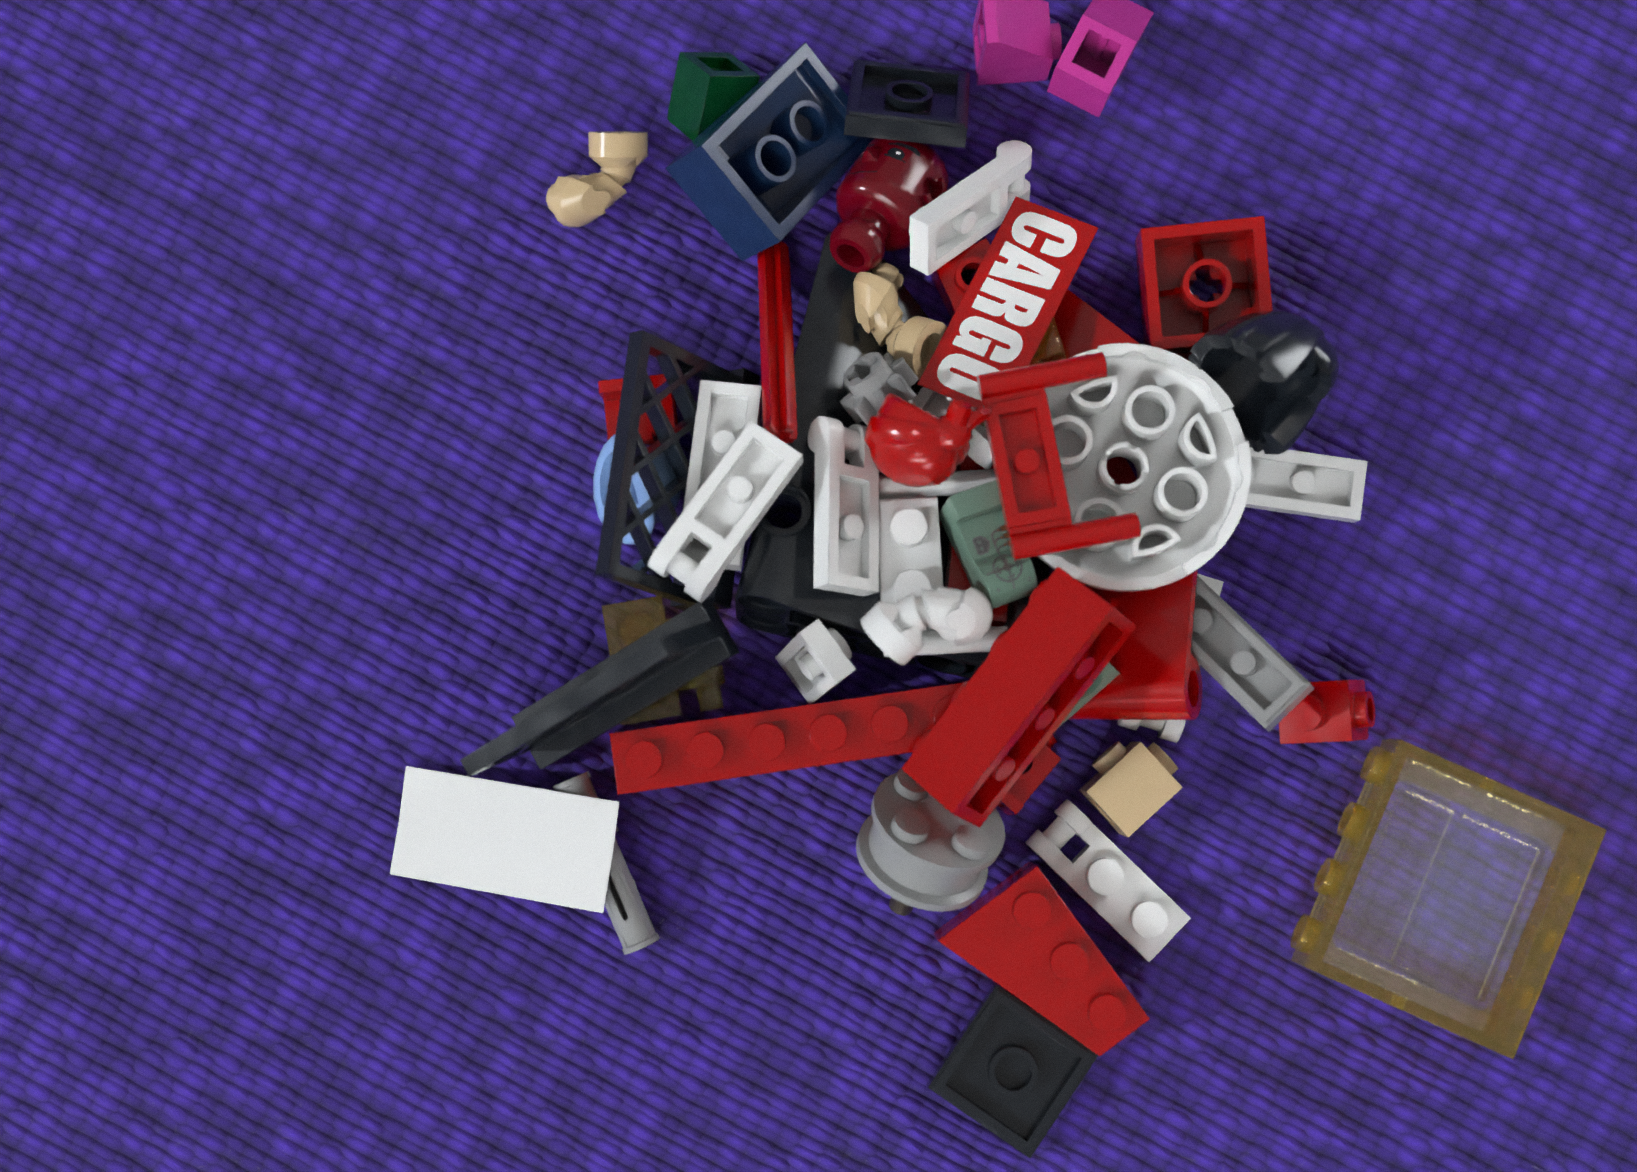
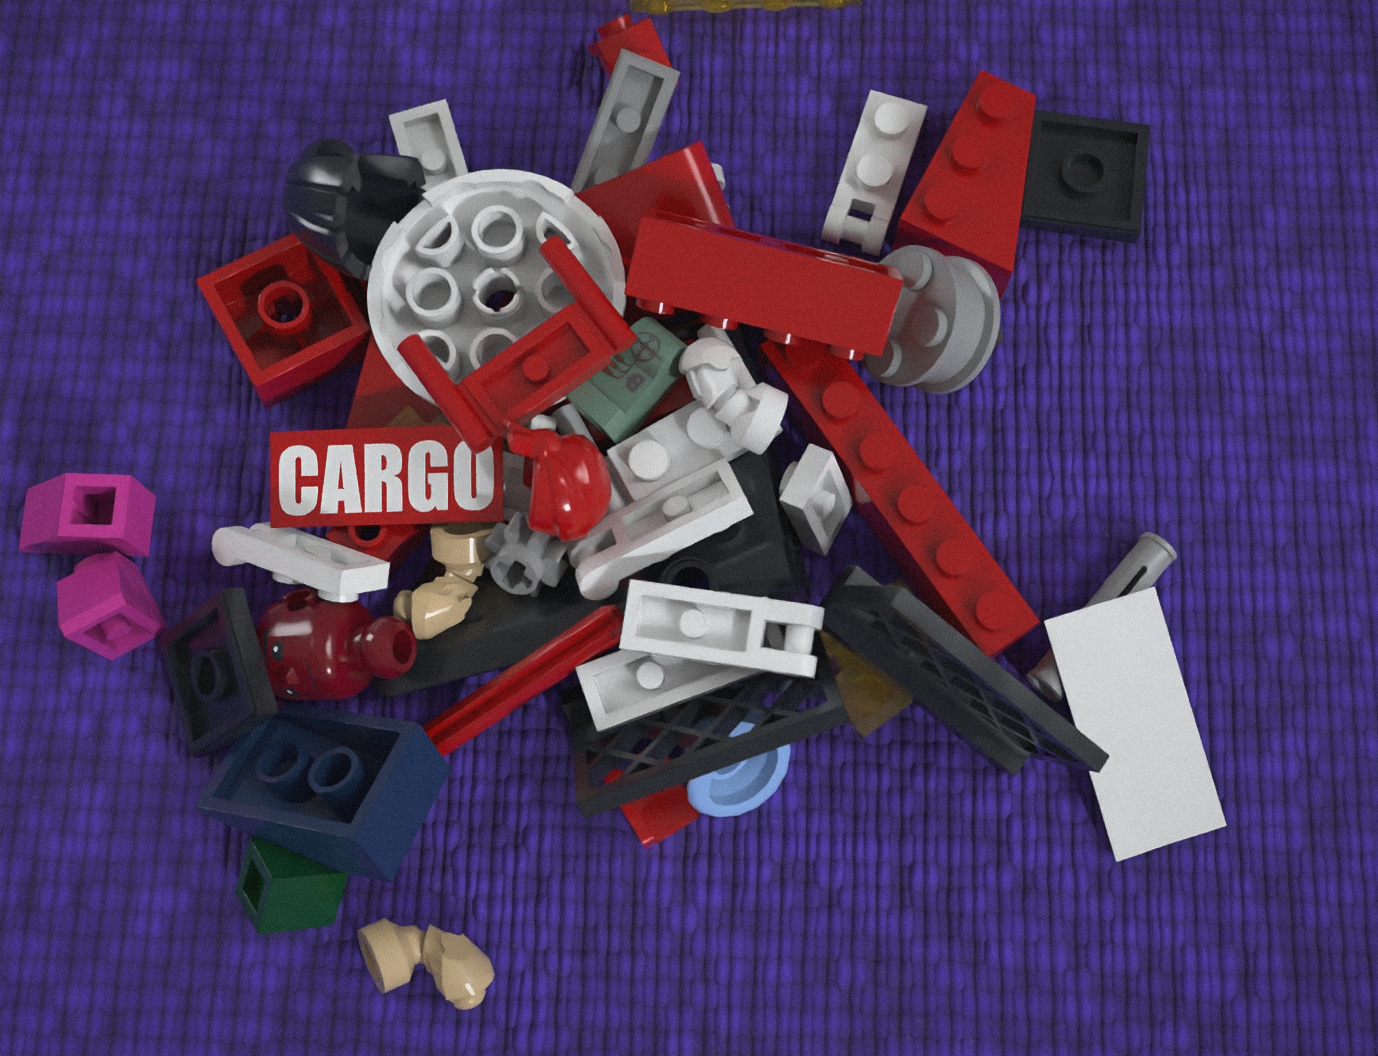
camera: 115 degrees left, 10 degrees down
(1131, 784) = (782, 185): tan brick -> none

